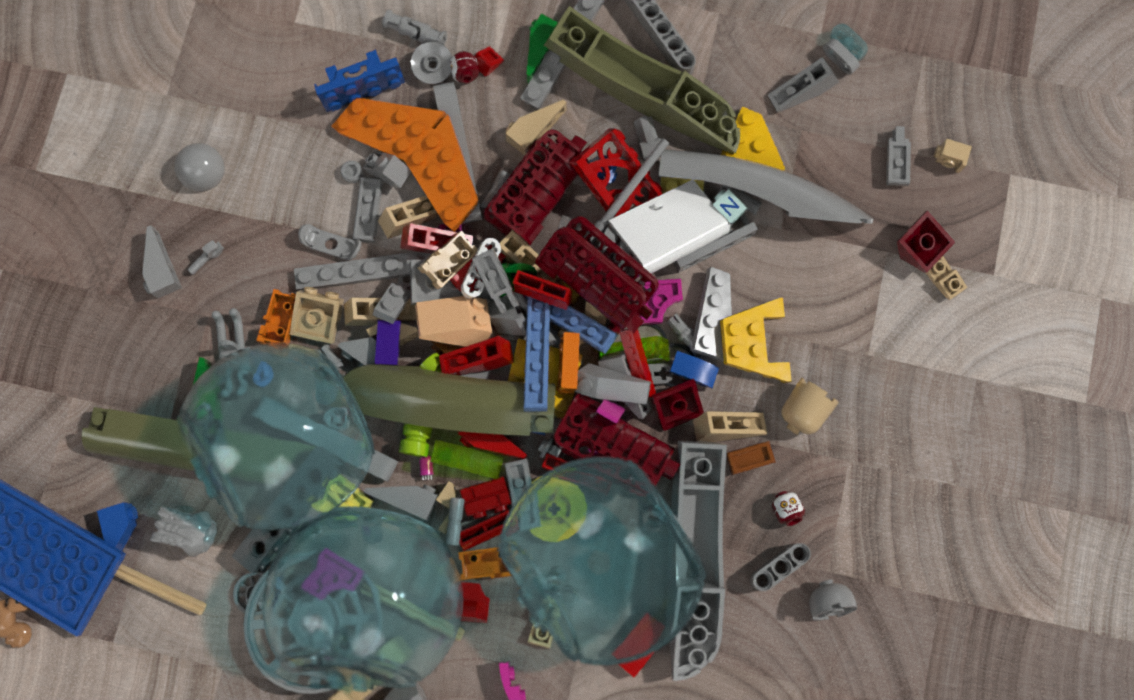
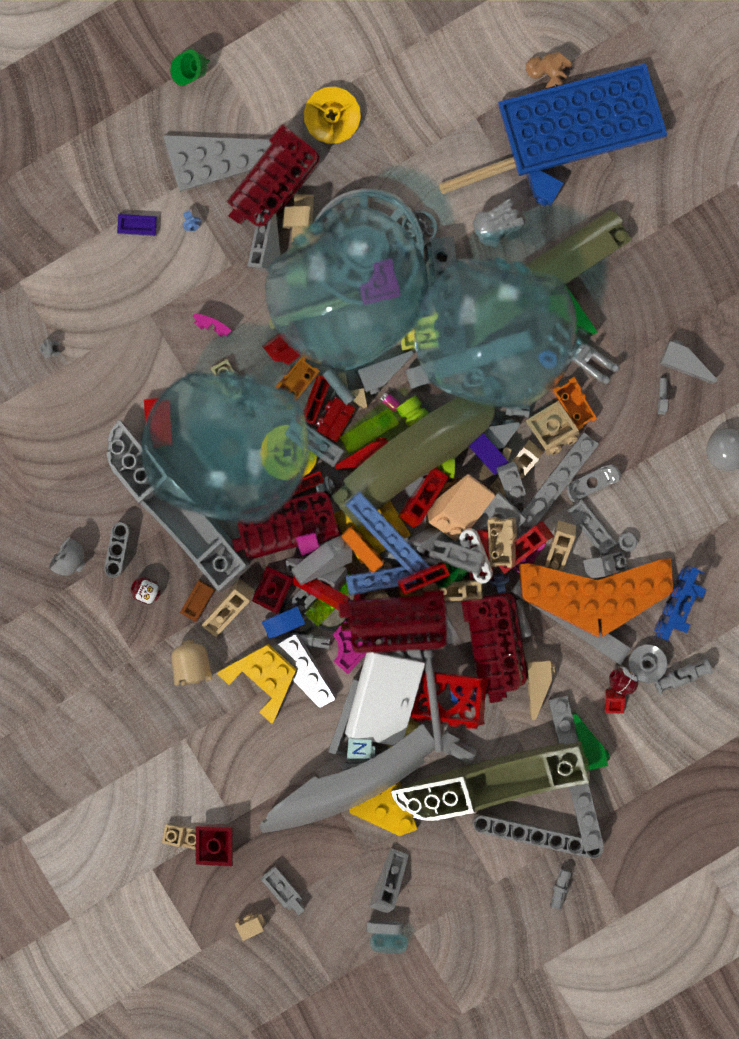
camera: 135 degrees right, 10 degrees up
(484, 233) = (499, 580): none -> medium blue plate

